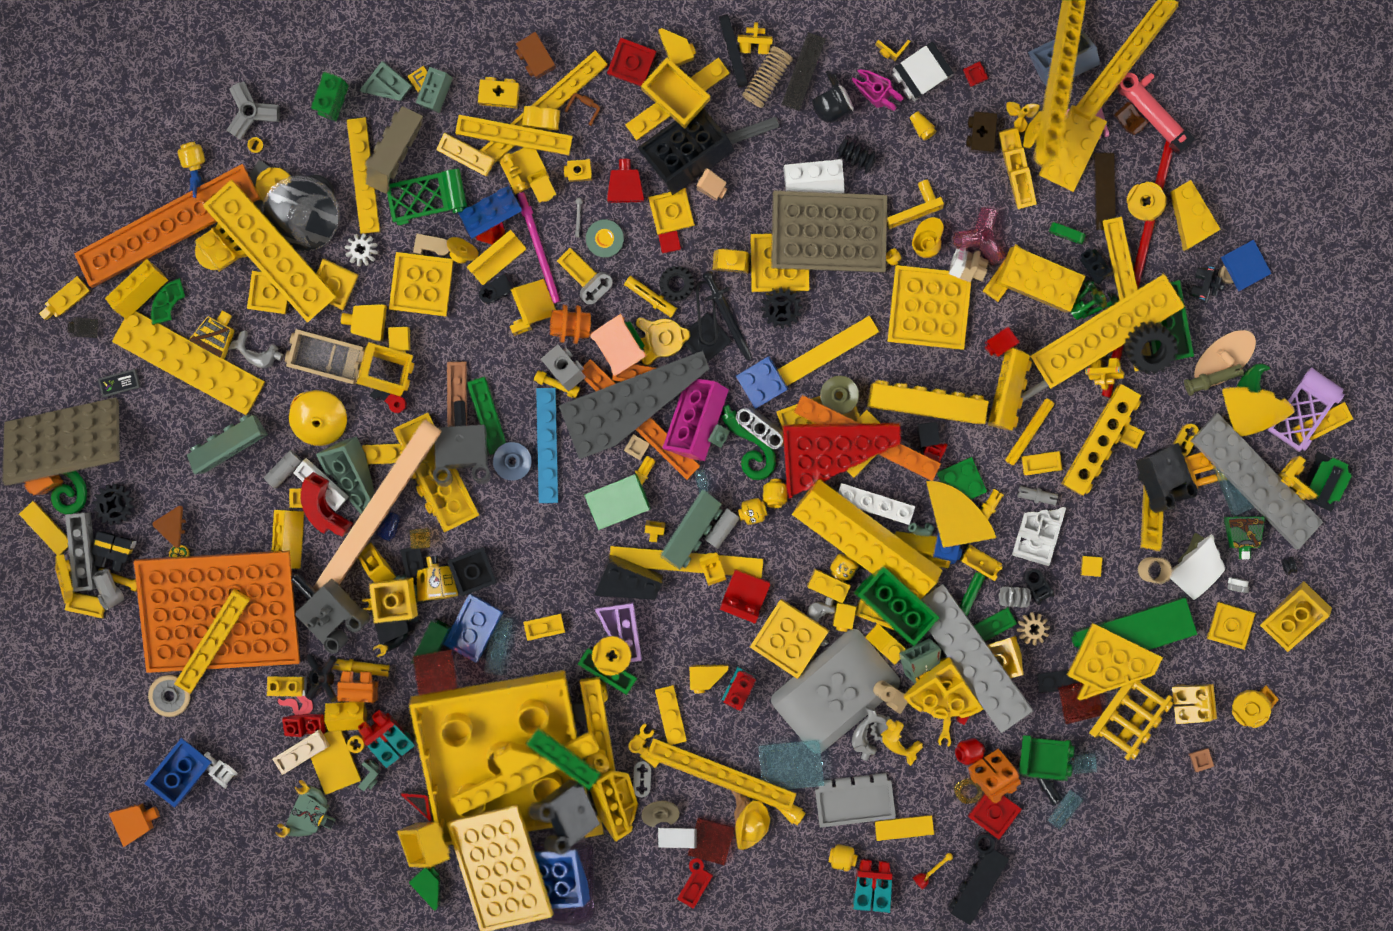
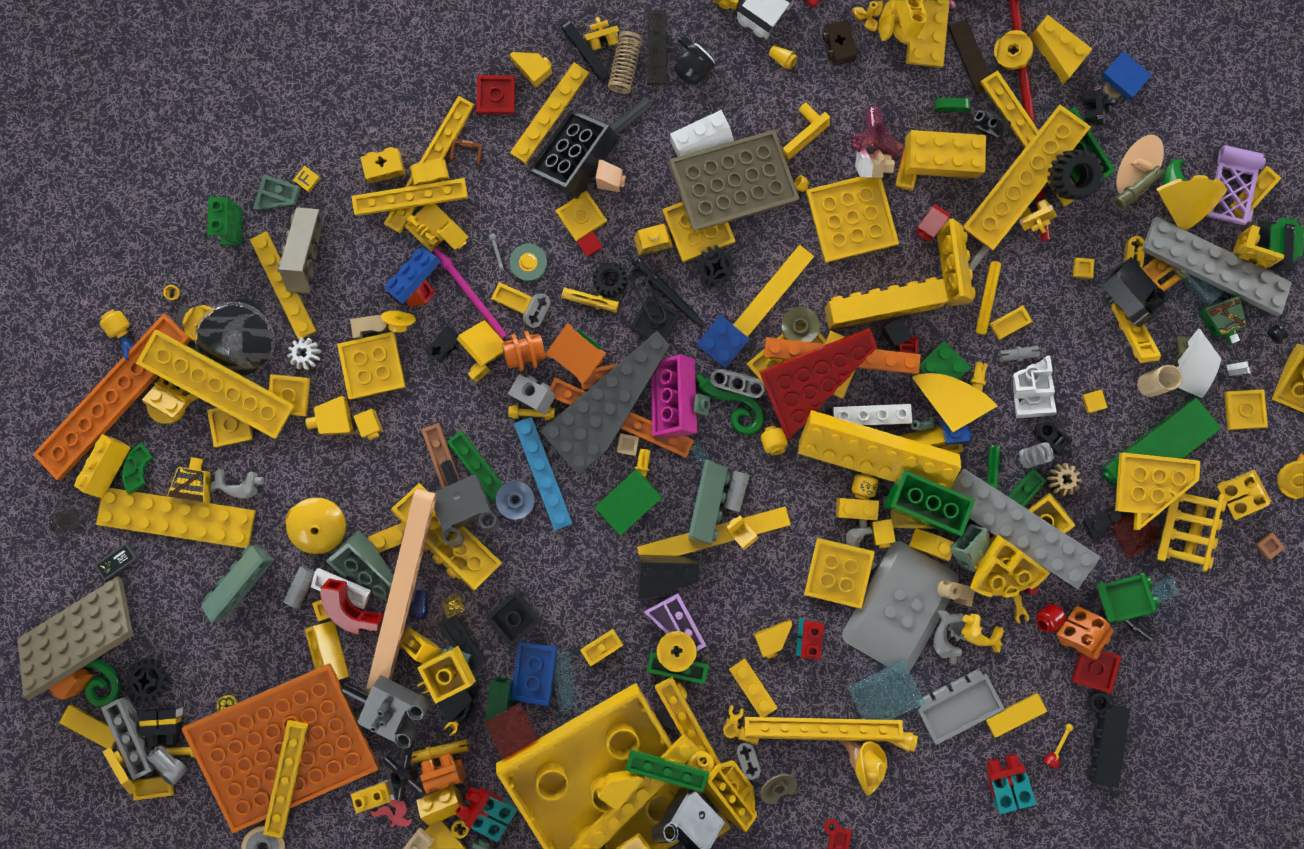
camera: 20 degrees left, 5 degrees down
(65, 298) = (39, 500): yellow hinge -> none
(170, 526) = (208, 680): dark orange piece -> none
(244, 100) = (167, 260): light grey piece -> none
(303, 724) = (401, 828): red slope -> none
(324, 356) = (303, 465): clear door -> none
(374, 350) = (363, 441): yellow window -> none
(396, 403) = (383, 483): red leg -> none
(434, 90) = (322, 183): sand green hinge -> none
(435, 582) = (481, 642): yellow torso -> none
(451, 194) = (371, 272): green piece -> none
(465, 154) = (372, 231): yellow tile -> none
(496, 257) = (433, 315): yellow panel -> none
(535, 55) = (405, 119): dark orange brick -> none
(585, 173) = (480, 215): yellow brick -> none
(624, 184) = (529, 206): red torso -> none
(654, 528) = (673, 515): yellow tile -> none
(661, 338) = (614, 334): yellow tile -> none
(675, 92) = (545, 103): yellow piece -> none
(677, 837) = (803, 806): tile -> none
(712, 841) = (837, 797): clear red plate -> none
(744, 596) = (781, 547): red bracket -> none
(753, 511) = (759, 464): yellow head -> none
(842, 857) = (969, 766): yellow head -> none
(856, 154) = (732, 102): black piece -> none
(877, 89) = (729, 38): dark pink hinge -> none
(928, 237) = (826, 154): yellow cap -> none
(958, 787) = (1053, 657): clear yellow piece -> none
(981, 562) = (991, 435): yellow hinge -> none
(1017, 168) = (883, 63): yellow slope -> none
(1065, 809) = (1162, 641): clear light blue tile -> none
(1072, 478) = (1071, 235): yellow brick -> none
(1081, 309) = (992, 168): plant -> none

